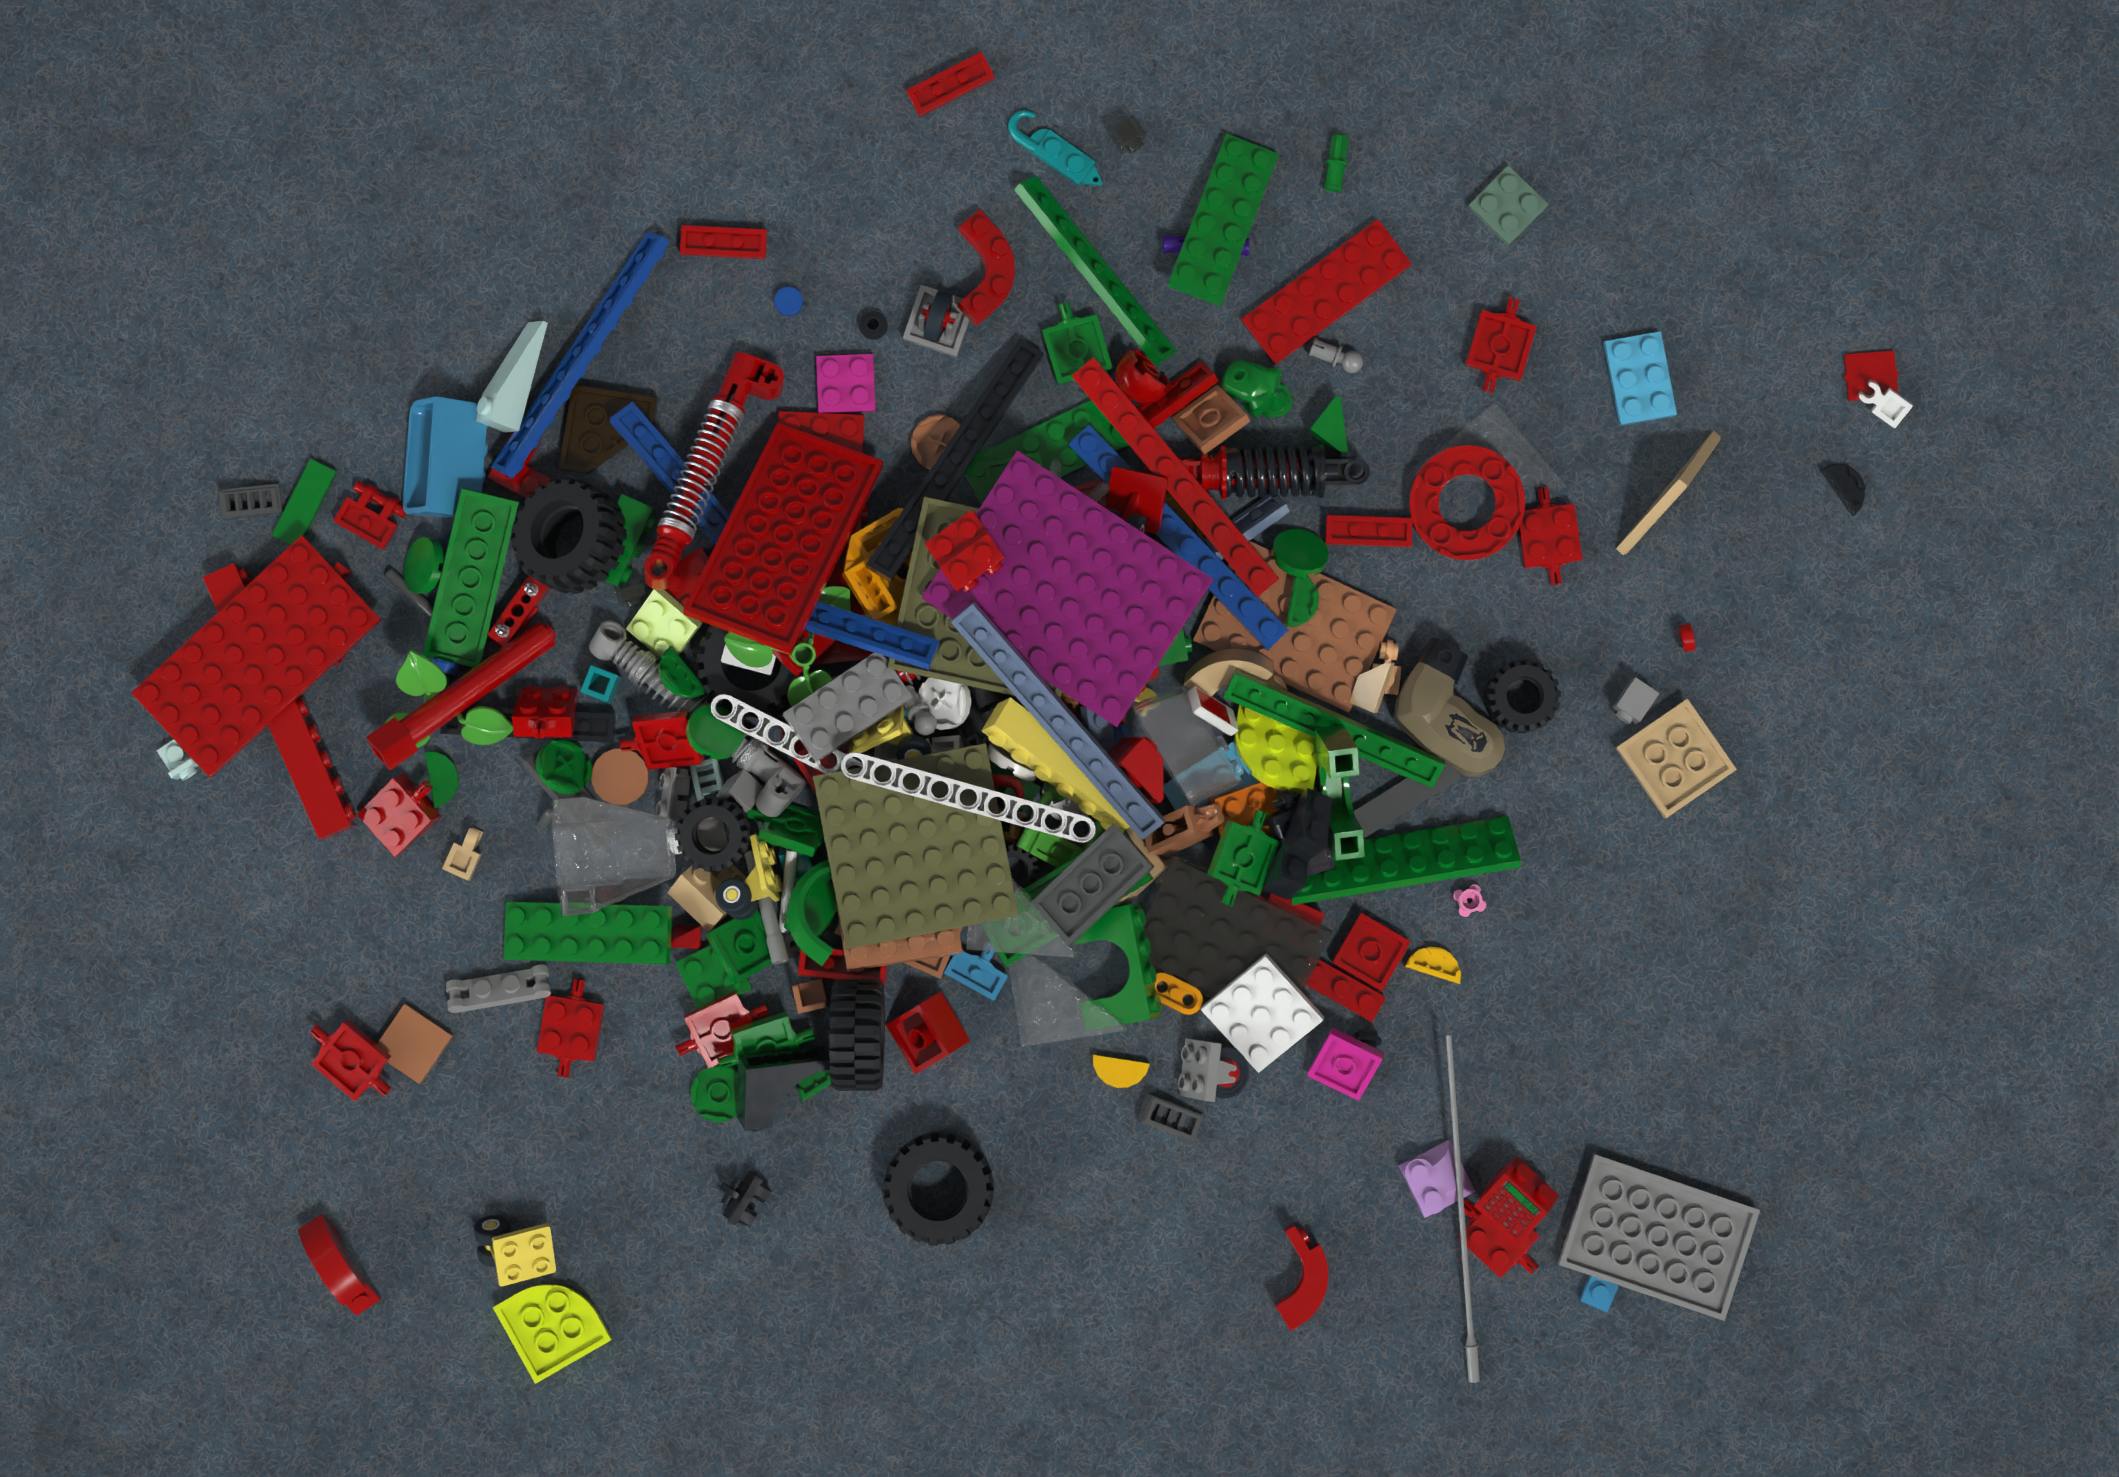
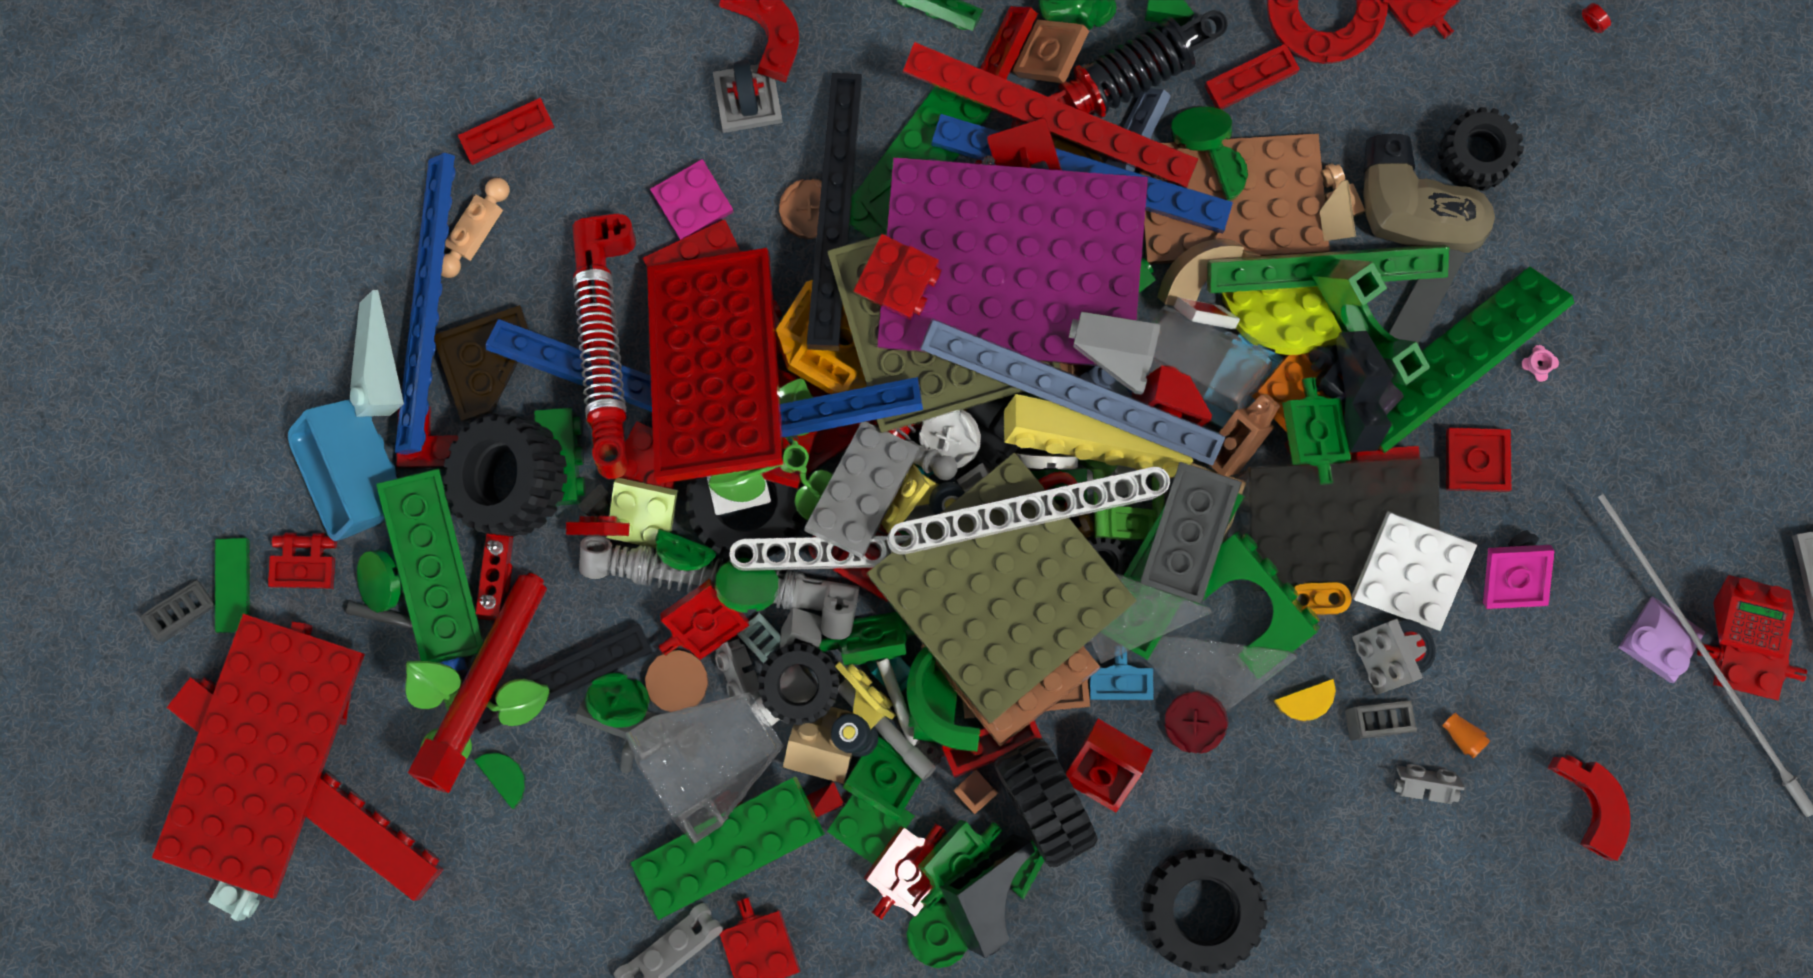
camera: 25 degrees left, 5 degrees down
(399, 813) = (481, 833): plate -> none
(462, 858) = (566, 843): tan plate -> none
(545, 712) = (571, 657): red plate -> none
(601, 684) = (611, 602): teal brick -> none
(622, 618) = (597, 526): none -> red plate
(655, 309) = (474, 226): none -> light nougat plate
(788, 301) = (597, 154): blue tile -> none
(877, 333) = (692, 141): black plate -> none
(1018, 1037) = (1196, 722): none -> dark red tile
(1074, 344) = (884, 54): green plate -> none
(1108, 704) = (1117, 346): none -> light grey slope
(1140, 379) = (966, 46): red cylinder -> none
(1189, 1195) = (1443, 785): none -> light grey hinge
(1230, 1167) = (1466, 735): none -> orange cone
(1345, 991) = (1478, 509): red plate -> none
(1435, 962) = (1542, 438): yellow tile -> none
(1634, 701) = (1584, 99): light grey brick -> none
(1675, 758) = (1651, 132): tan plate -> none

